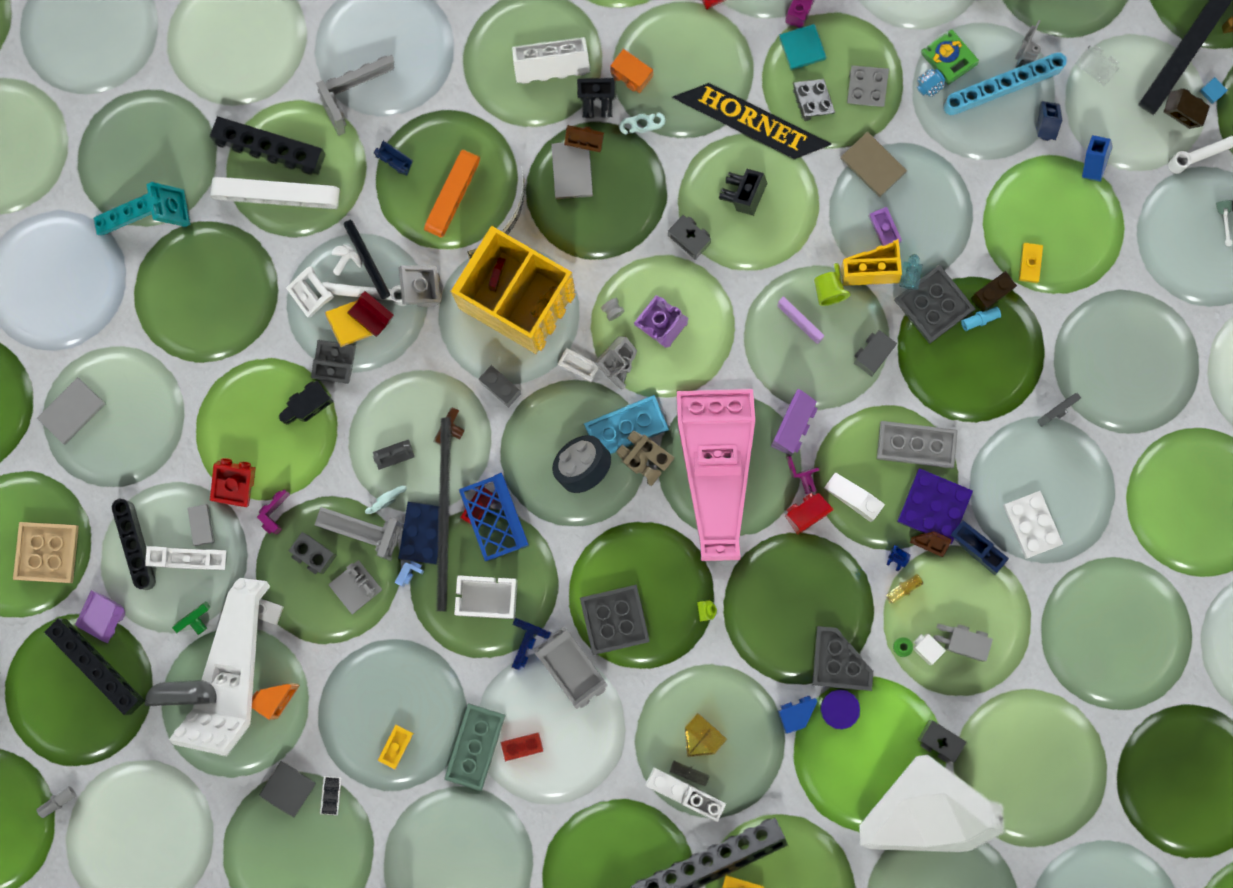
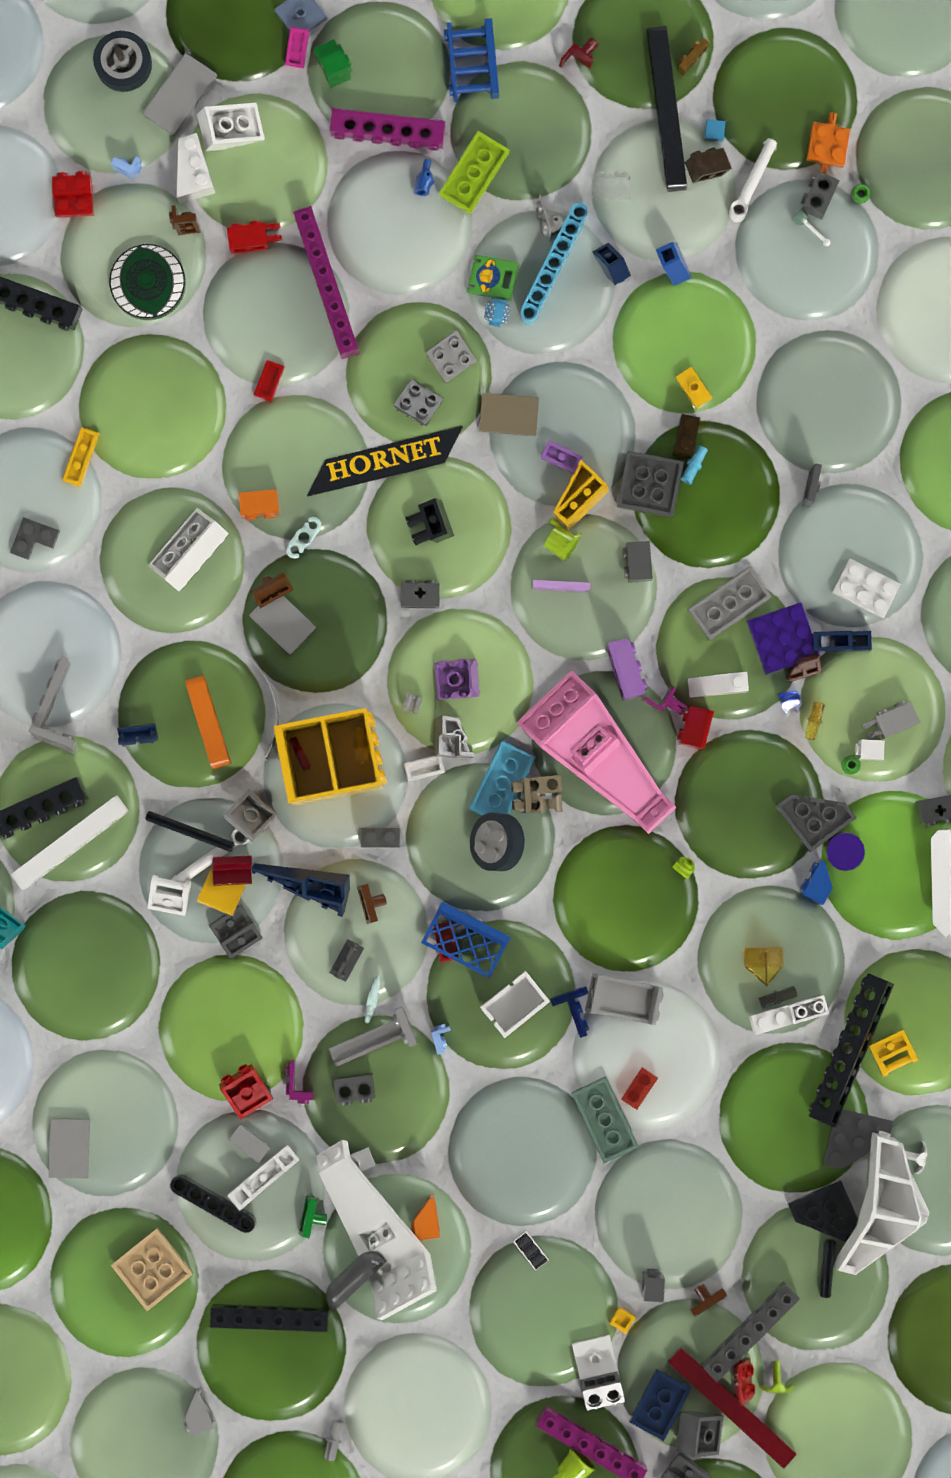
camera: 50 degrees left, 5 degrees up
(100, 616) = (238, 1278): medium lavender slope -> none
(287, 789) = (495, 1275): dark grey slope -> none
(306, 403) = (246, 981): black hinge -> none
(347, 253) = (169, 842): white plant -> none
(355, 587) = (409, 1084): light grey hinge -> none
(395, 747) = (547, 1172): yellow plate -> none
(420, 534) = (422, 999): dark blue plate -> none
(425, 385) = (323, 887): none -> dark blue wedge
(443, 514) = (429, 973): dark grey axle -> none
(596, 88) = (244, 543): black brick -> none
(614, 619) = (623, 934): dark grey plate -> none
(802, 47) = (373, 368): teal tile -> none
(911, 273) = (612, 476): clear light blue hinge -> none

